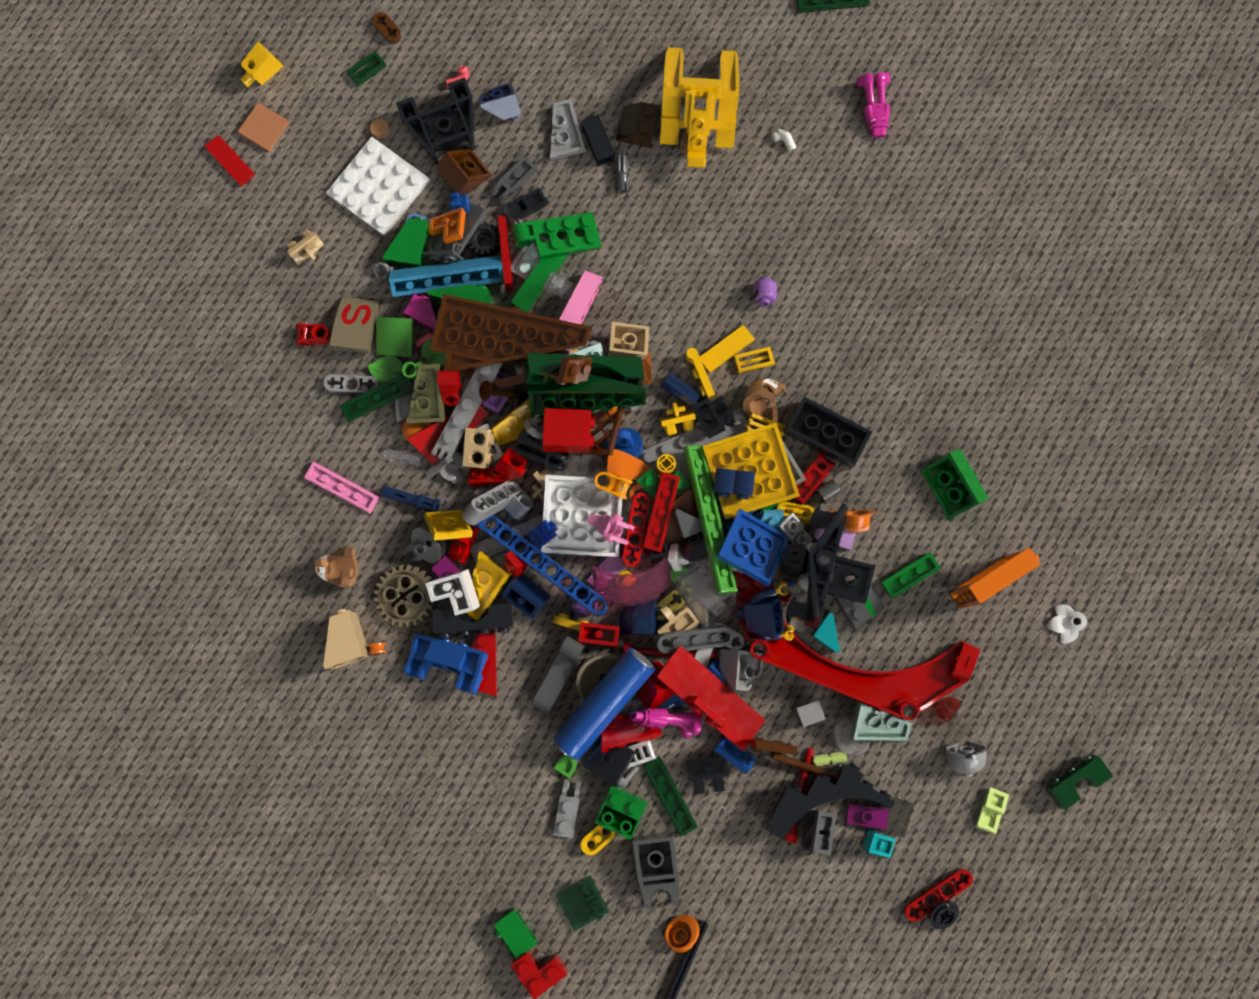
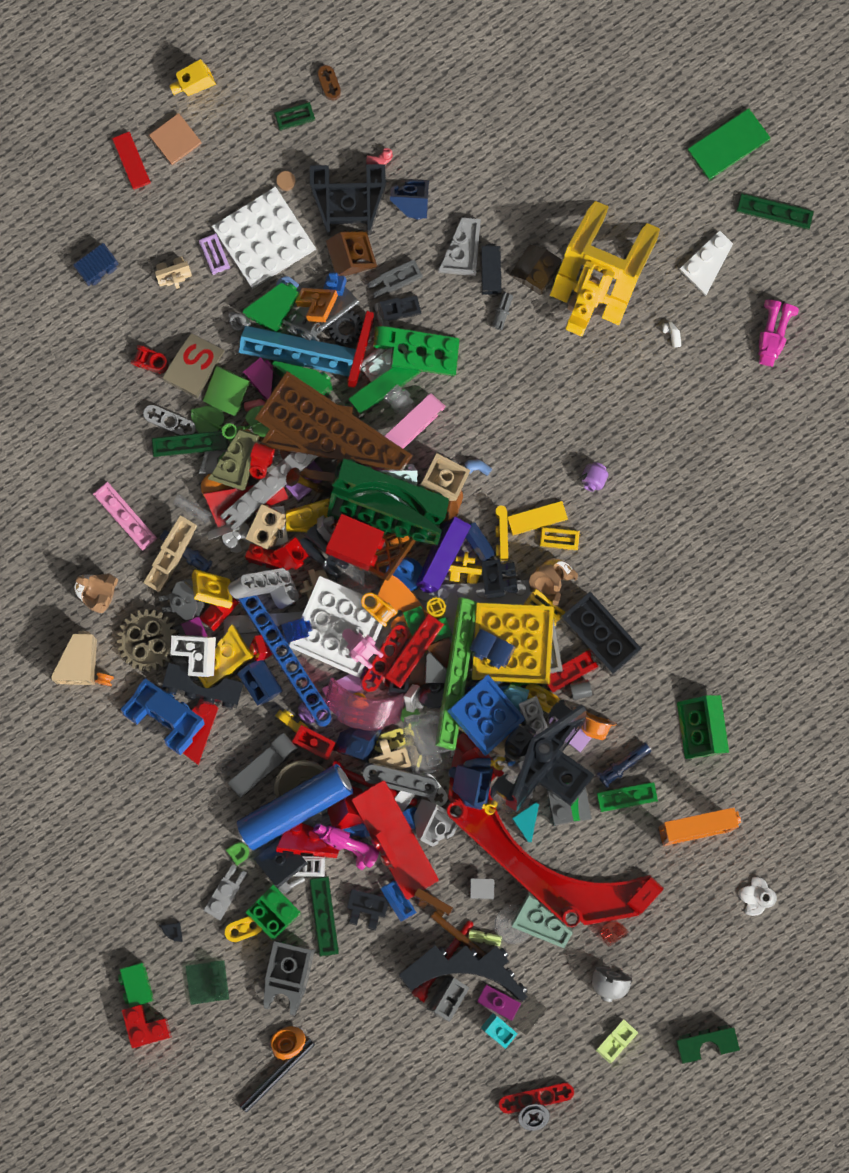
camera: 20 degrees right, 0 degrees up
(230, 265) = (96, 265): none -> dark blue brick
(347, 228) = (220, 268): none -> lavender tile
(397, 506) = (170, 554): none -> tan slope
(531, 866) = (173, 931): none -> black tile
(572, 370) = (379, 489): reddish brown bracket -> none
(653, 414) = (442, 555): none -> dark purple slope
(654, 320) = (478, 465): none -> medium blue arm
(790, 65) = (706, 263): none -> white wing
(891, 552) = (616, 769): none -> dark blue pin

